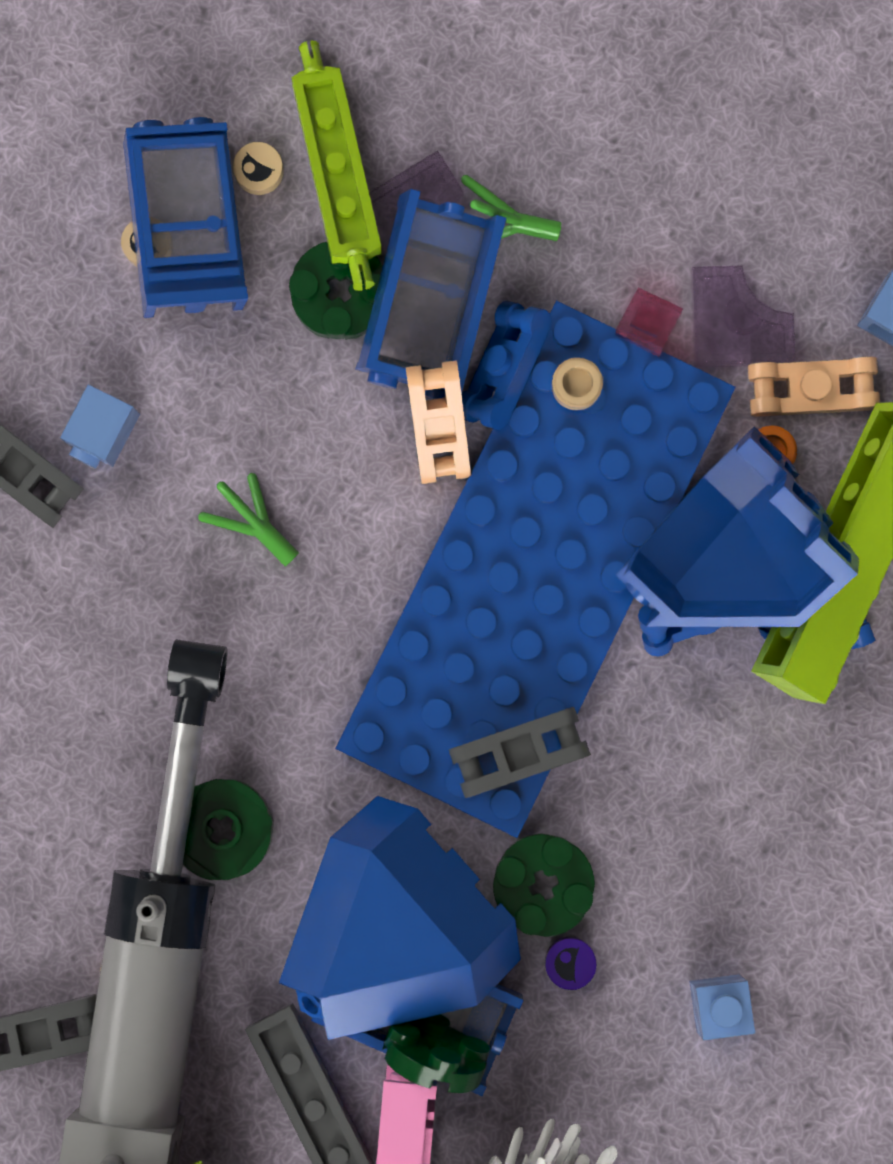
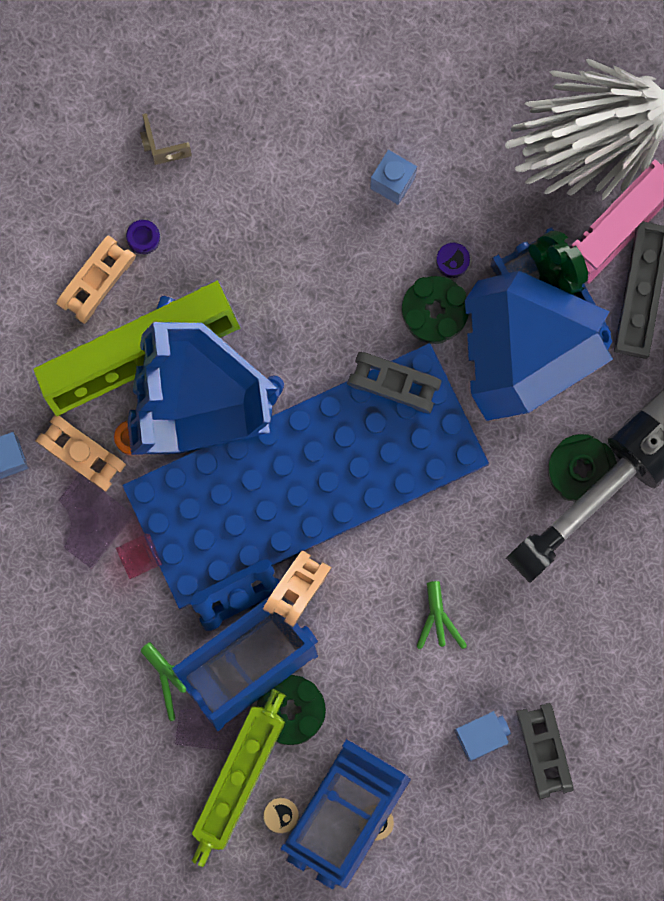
camera: 145 degrees left, 5 degrees down
(577, 383) = (206, 551): tan tile -> none

